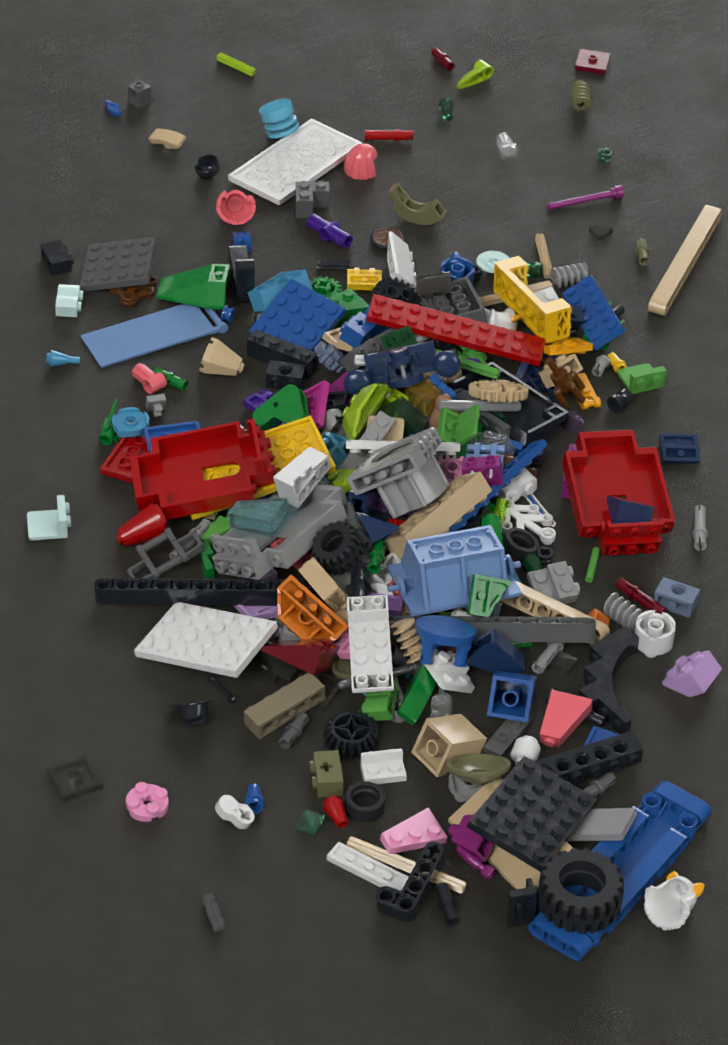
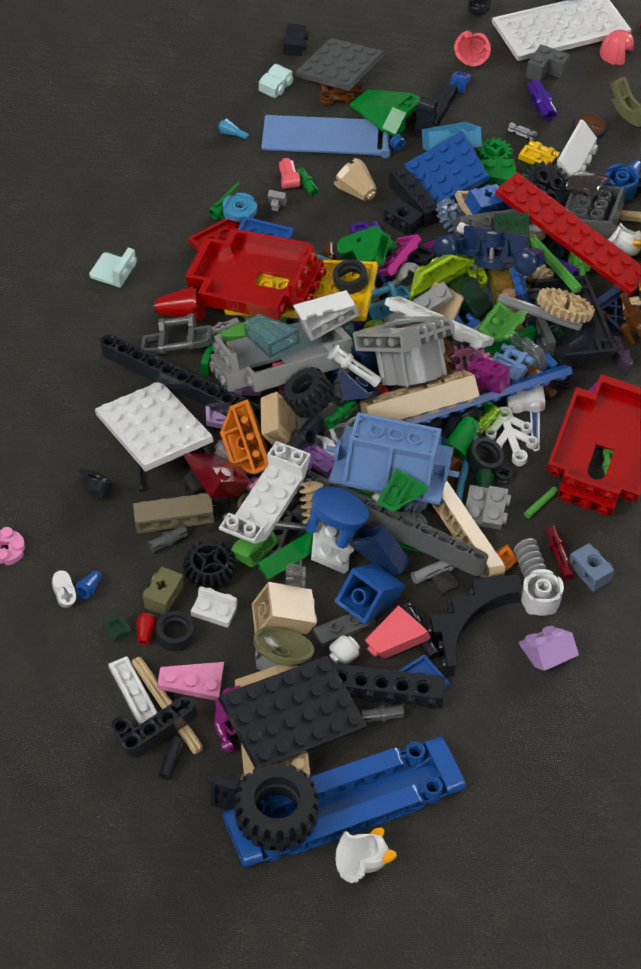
camera: 30 degrees right, 10 degrees up
(292, 427) = (350, 286): none -> black tyre
(357, 506) = (347, 361): none -> white pin
(604, 825) = (354, 753): light grey tile -> none
(628, 511) = (600, 468): dark blue slope -> none

